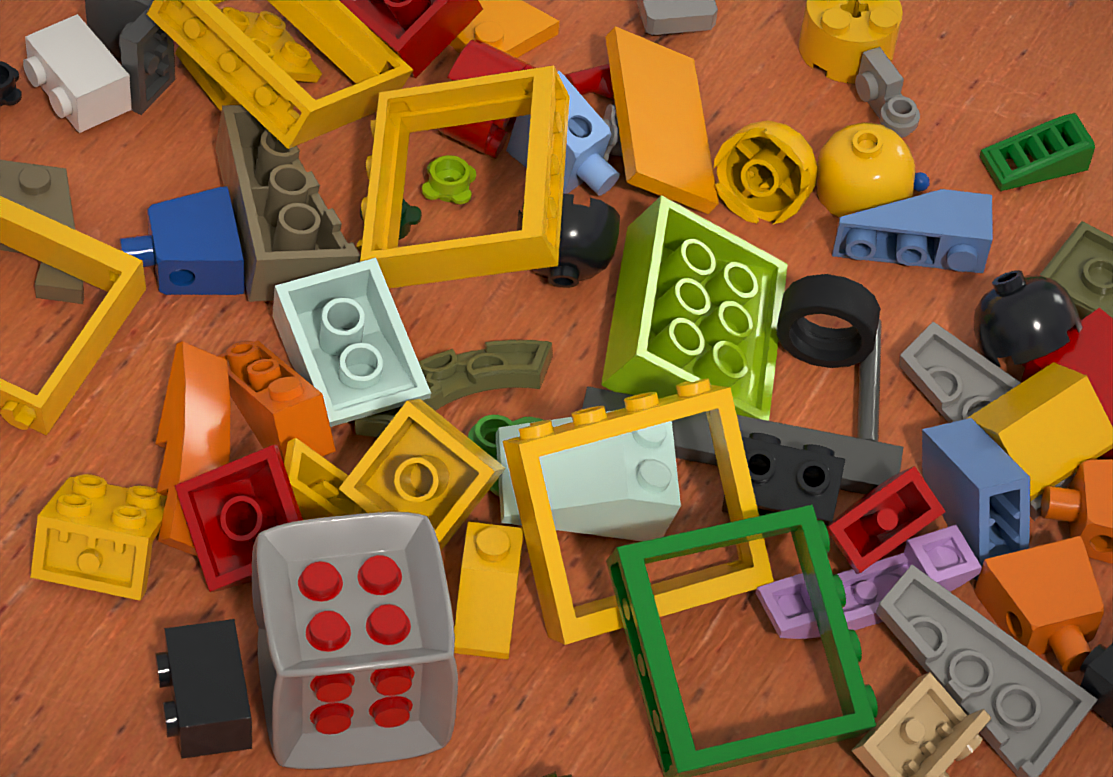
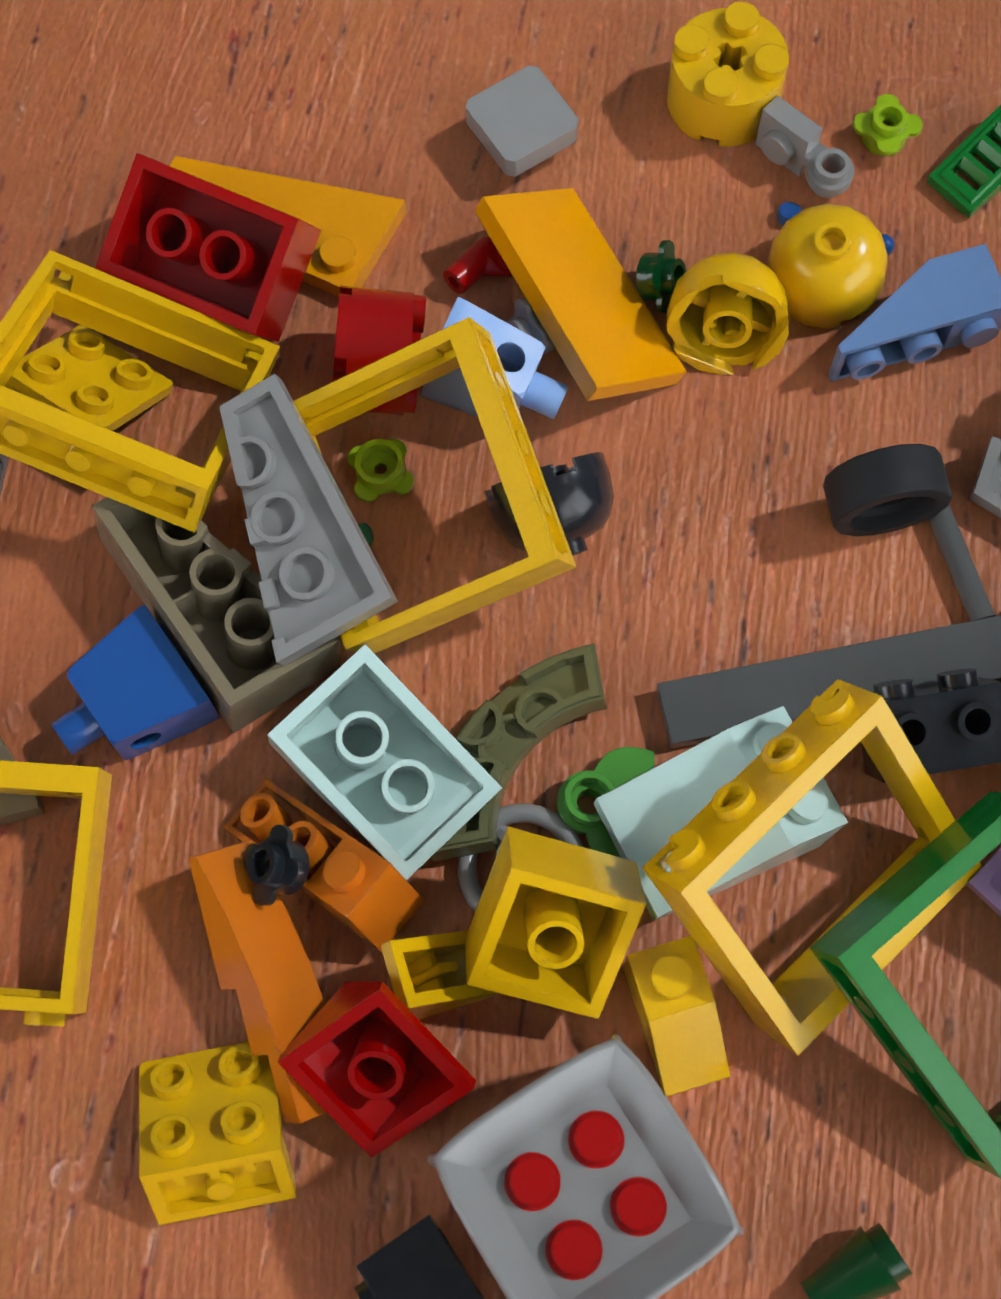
camera: 15 degrees left, 20 degrees up
(238, 371) = (276, 865): none -> black plate
(367, 168) = (305, 538): none -> light grey wing
(694, 310) = (732, 541): lime slope -> none
(725, 126) = (658, 275): none -> dark green plate
(964, 107) = (885, 139): none -> lime plate

